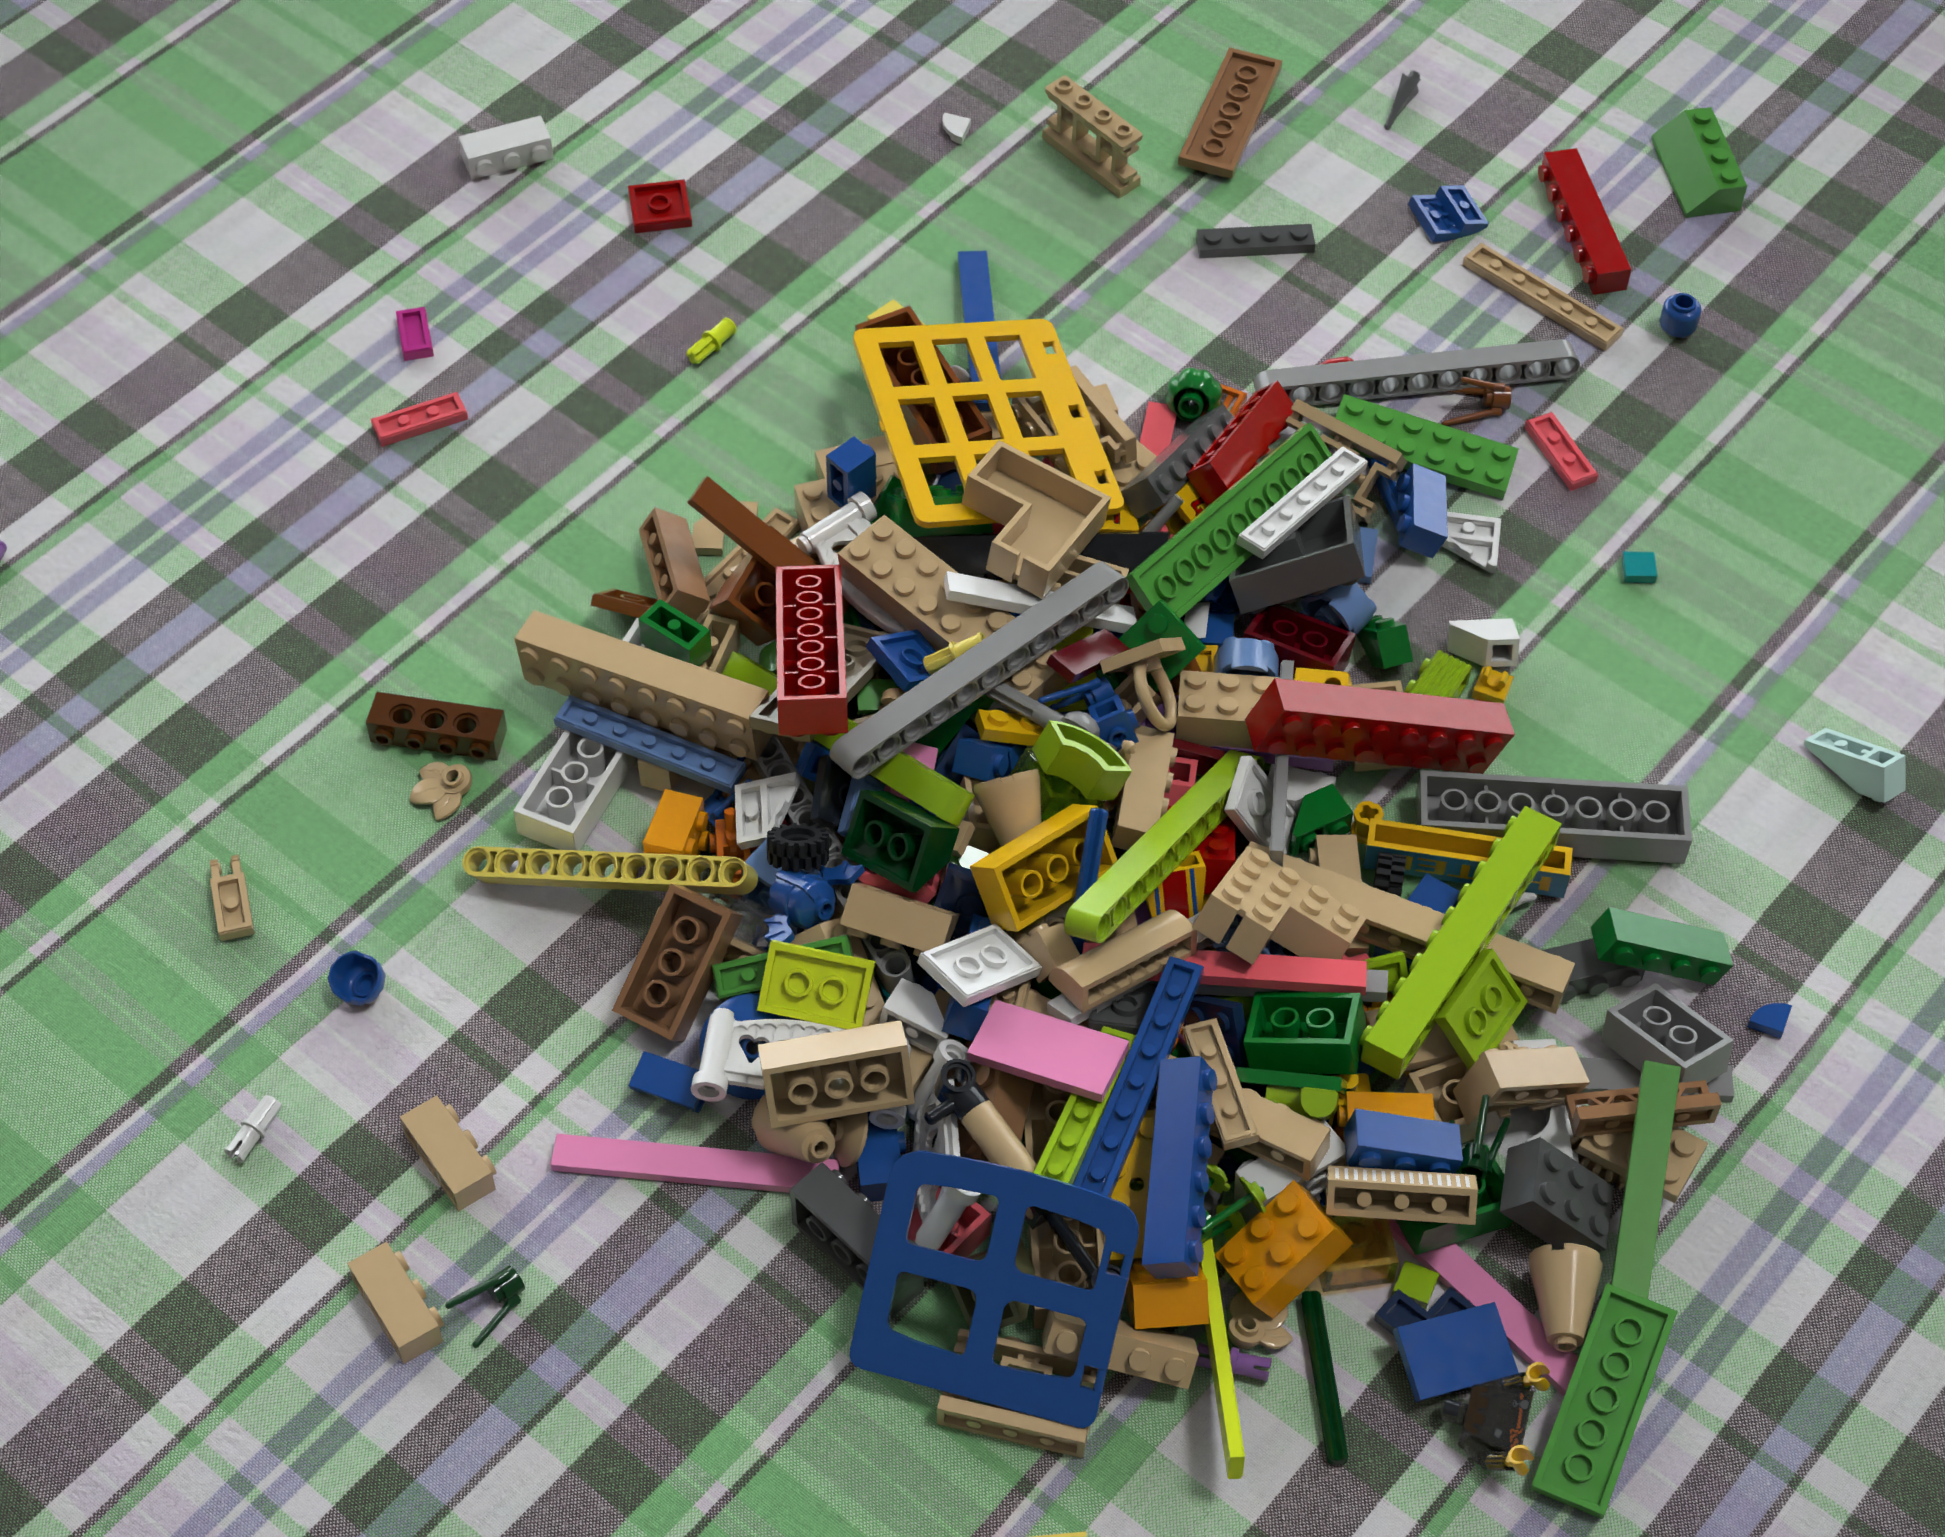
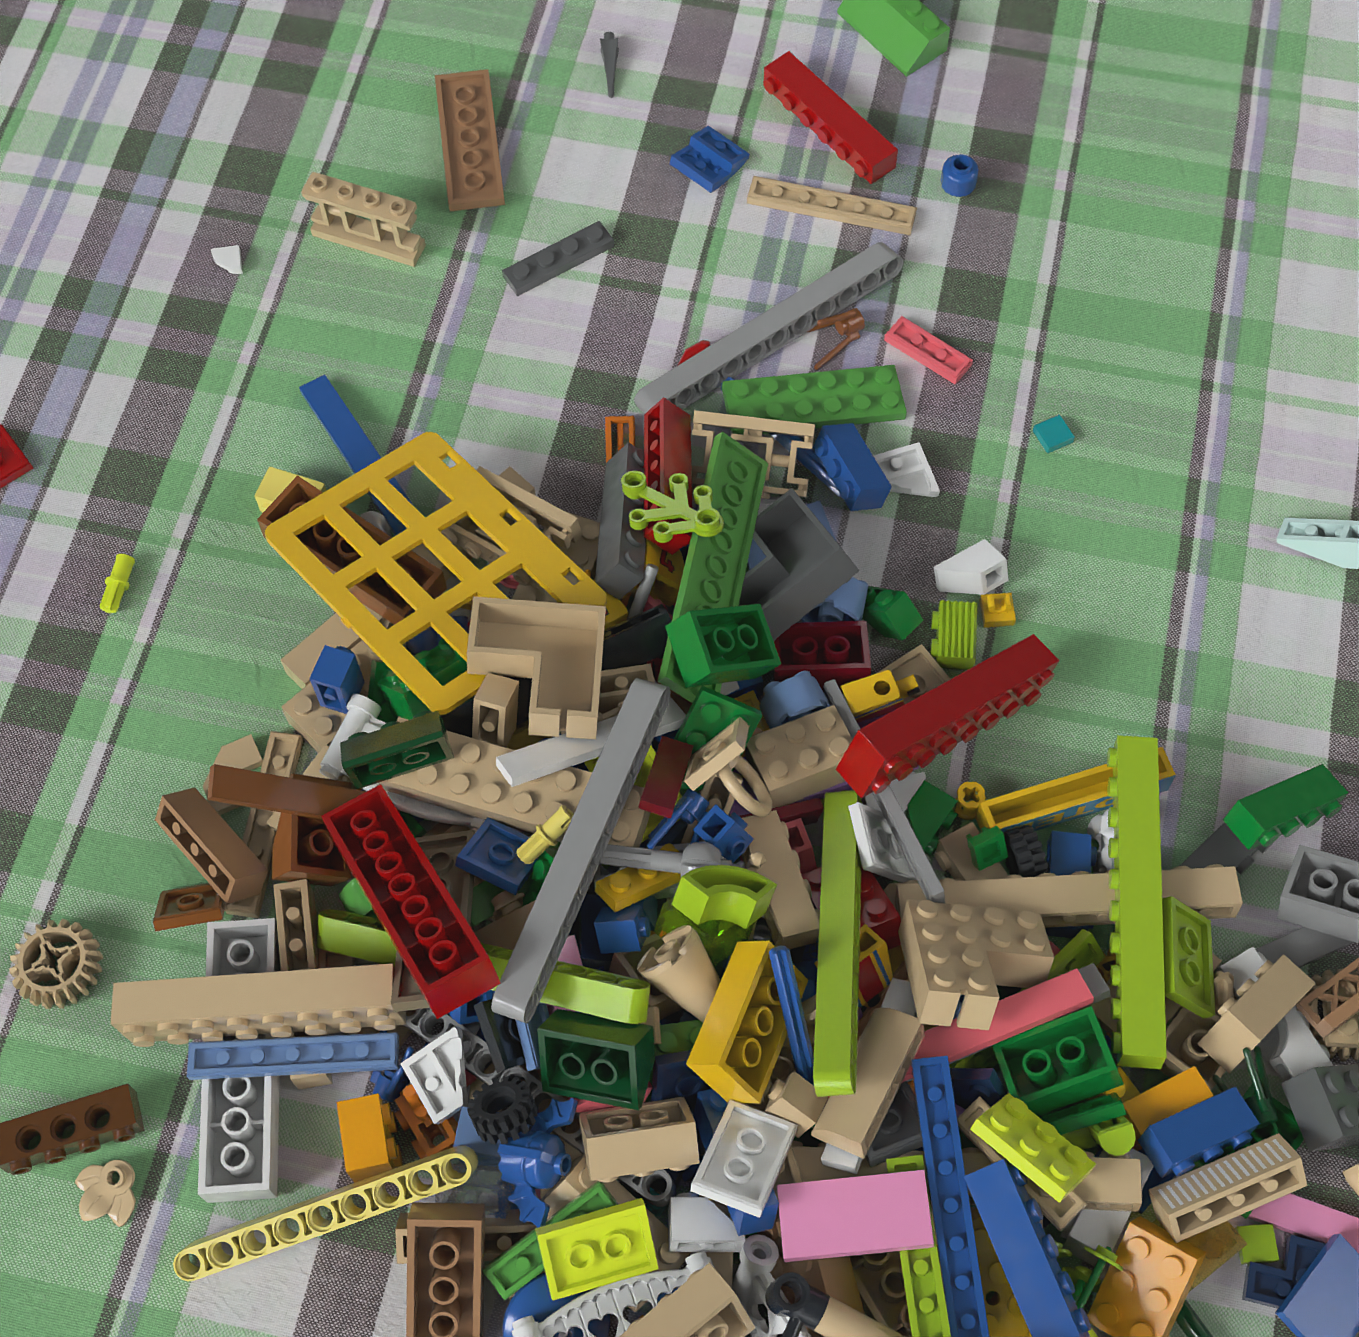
camera: 25 degrees left, 10 degrees up
(495, 602) = (29, 973): none -> tan gear
(675, 634) = (260, 932): green brick -> none
(864, 532) = (395, 749): none -> dark green slope
(970, 542) = (495, 710): none -> tan brick
(1158, 427) = (576, 488): coral tile -> none
(1190, 390) = (586, 440): green plant -> none
(1200, 575) = (722, 645): none -> green brick
(1237, 1067) = (1033, 1146): none -> neon yellow plate
(1241, 475) = (704, 522): none -> lime plant
(1301, 502) = (756, 516): white tile -> none
(1354, 855) = (987, 847): none -> green tile
(1595, 816) = (1146, 704): light grey brick -> none

